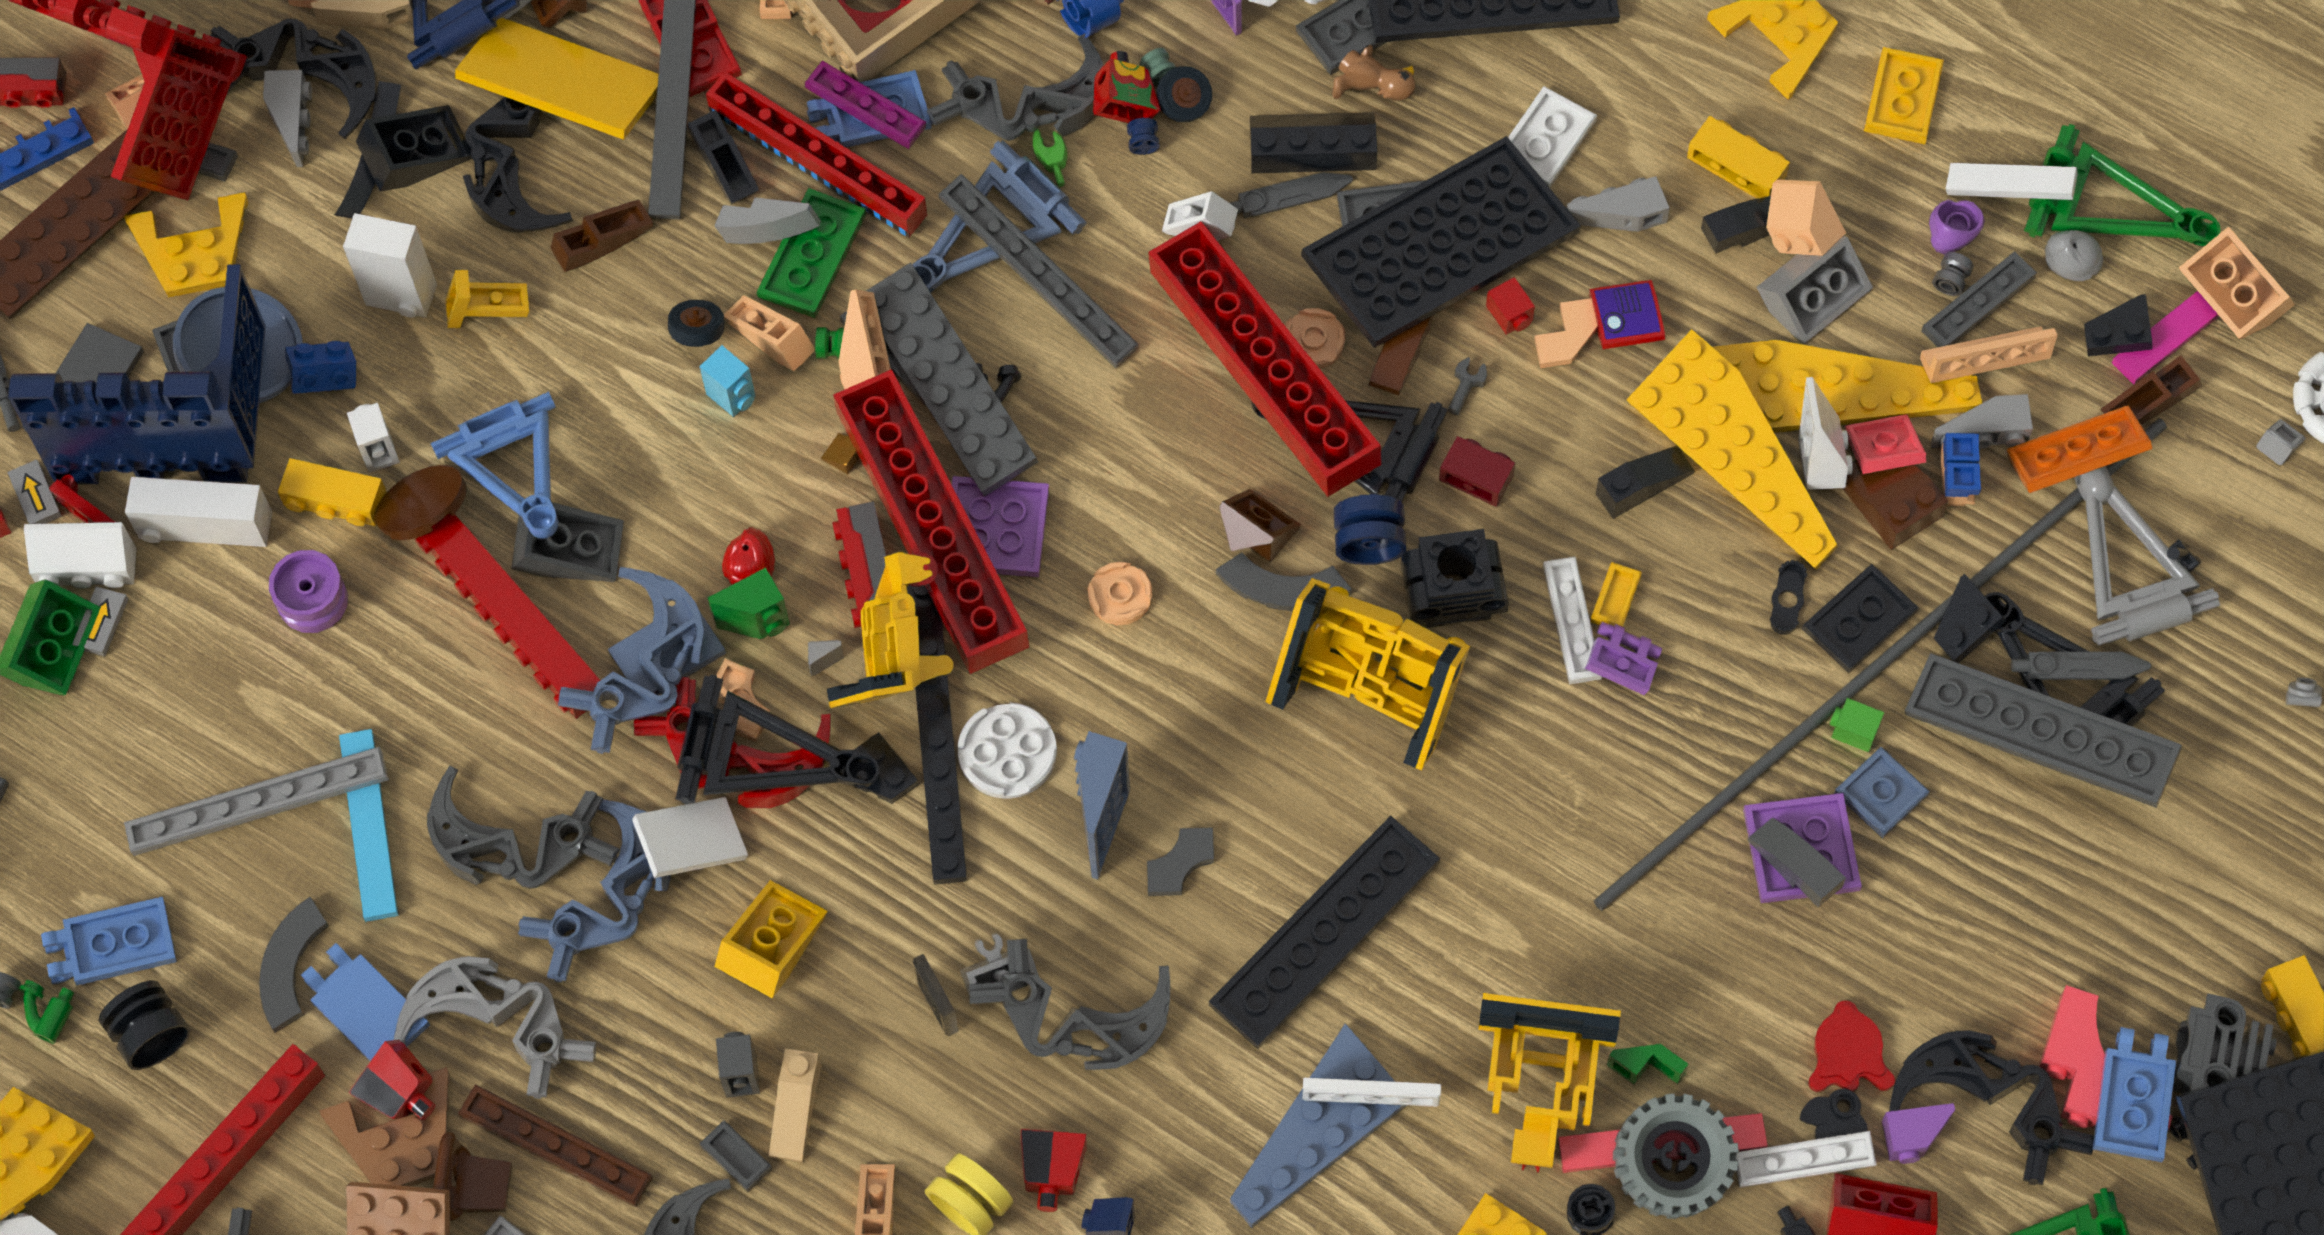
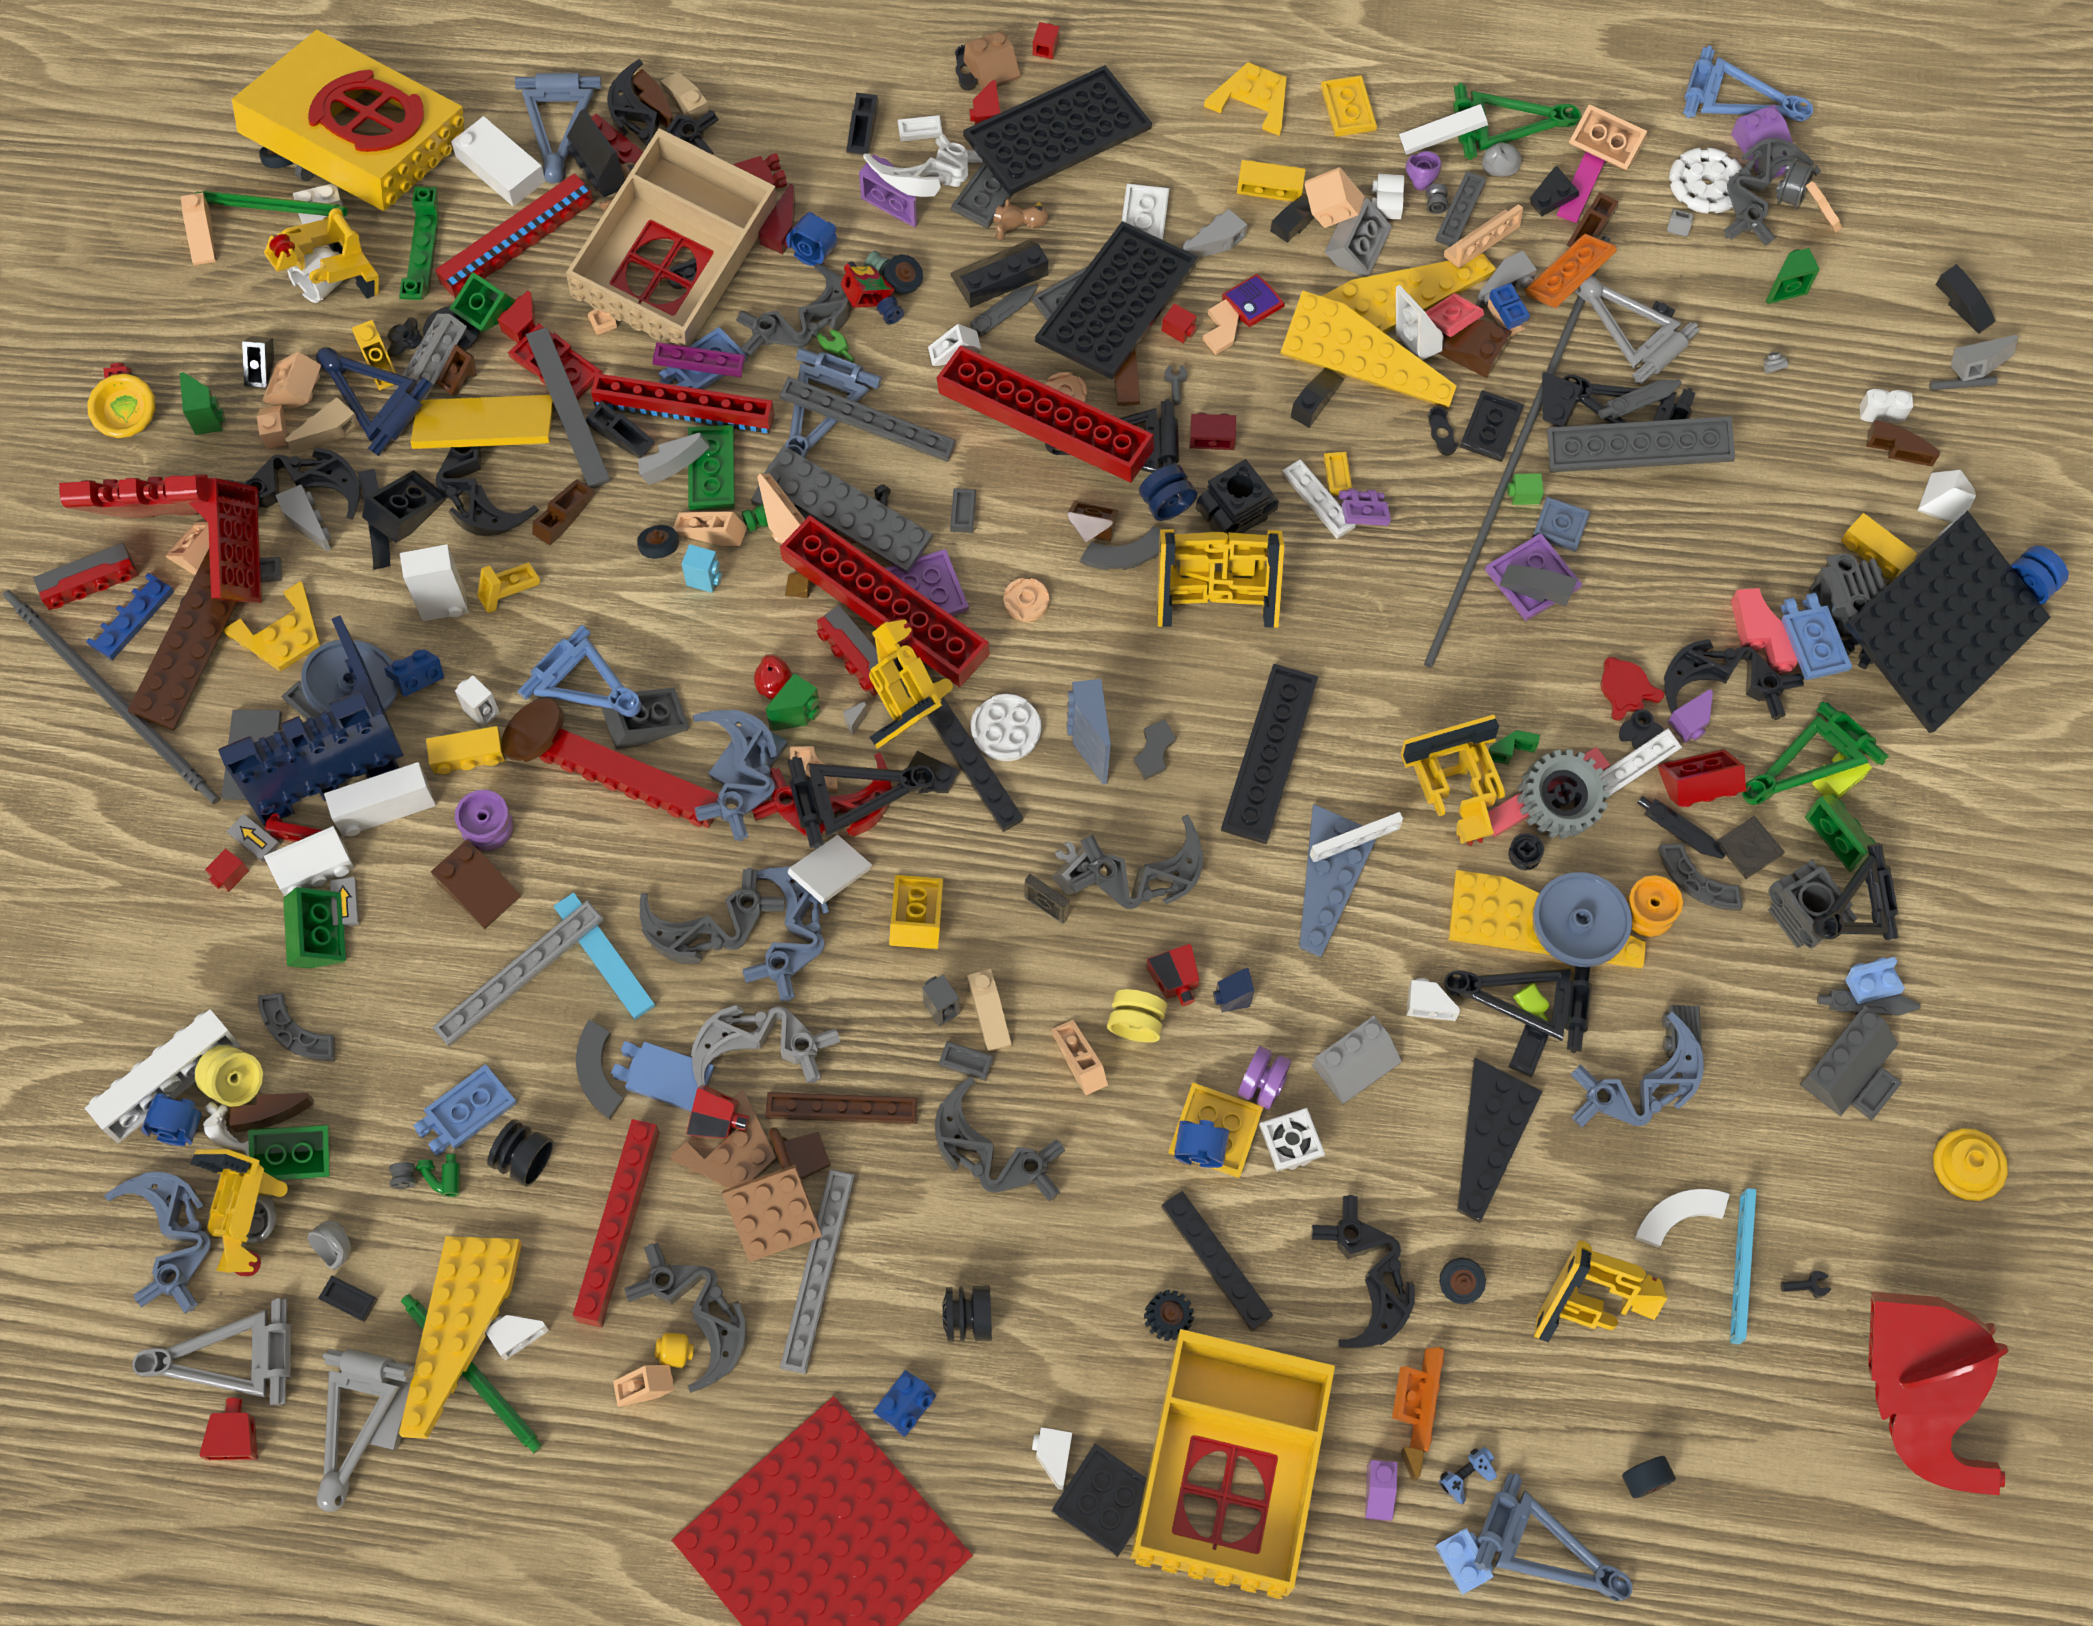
camera: 30 degrees left, 0 degrees up
(260, 666) = (475, 884): none -> reddish brown slope
(1100, 441) = (963, 510): none -> dark grey tile
(1887, 244) = (1389, 195): none -> white brick

